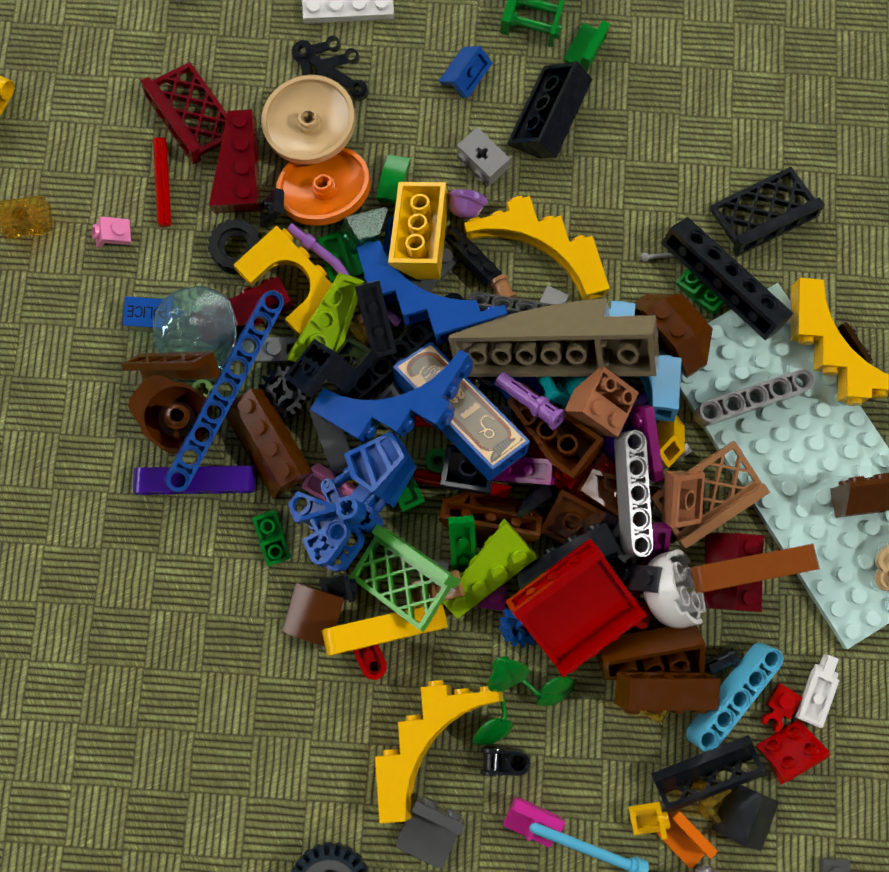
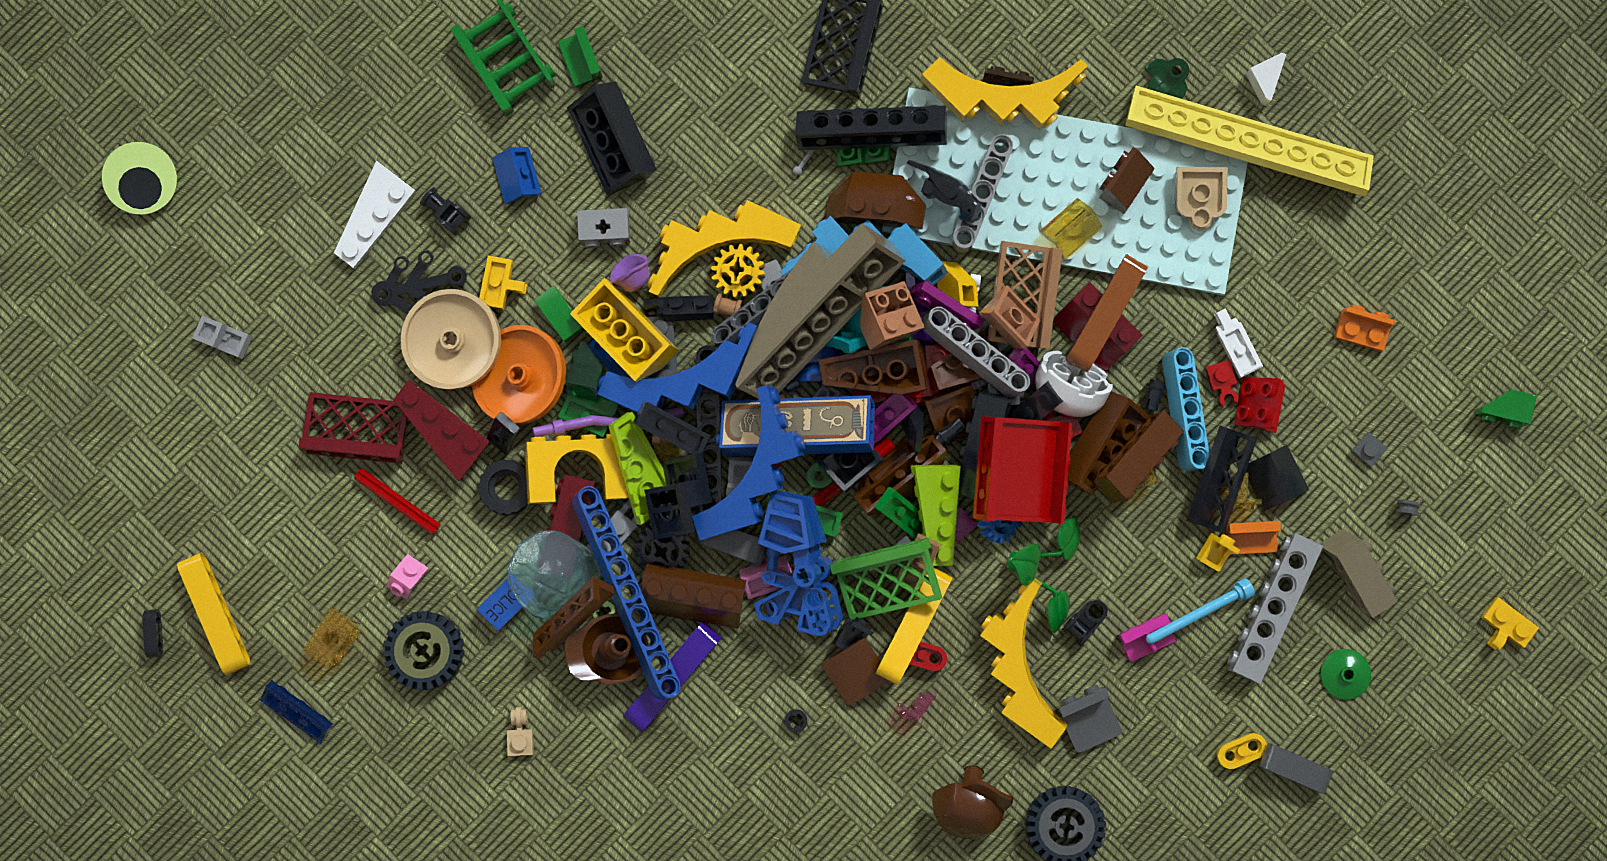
camera: 45 degrees left, 5 degrees up
(50, 278) = (405, 667): none -> wheel
(56, 411) = (520, 740): none -> tan plate
(232, 607) = (797, 728): none -> black bush
(271, 537) = (768, 654): green slope -> none
(278, 798) = (970, 807): none -> reddish brown piece
(330, 686) = (921, 704): none -> clear pink bracket
(378, 120) = (497, 282): none -> yellow plate
(396, 46) = (448, 213): none -> black connector
(534, 284) = (738, 261): none -> yellow gear
(538, 405) = (849, 365): medium lavender pin -> none
(555, 528) = (949, 432): none -> black pin
(733, 371) = (949, 191): none -> black animal
(791, 487) = (1072, 227): none -> clear yellow panel

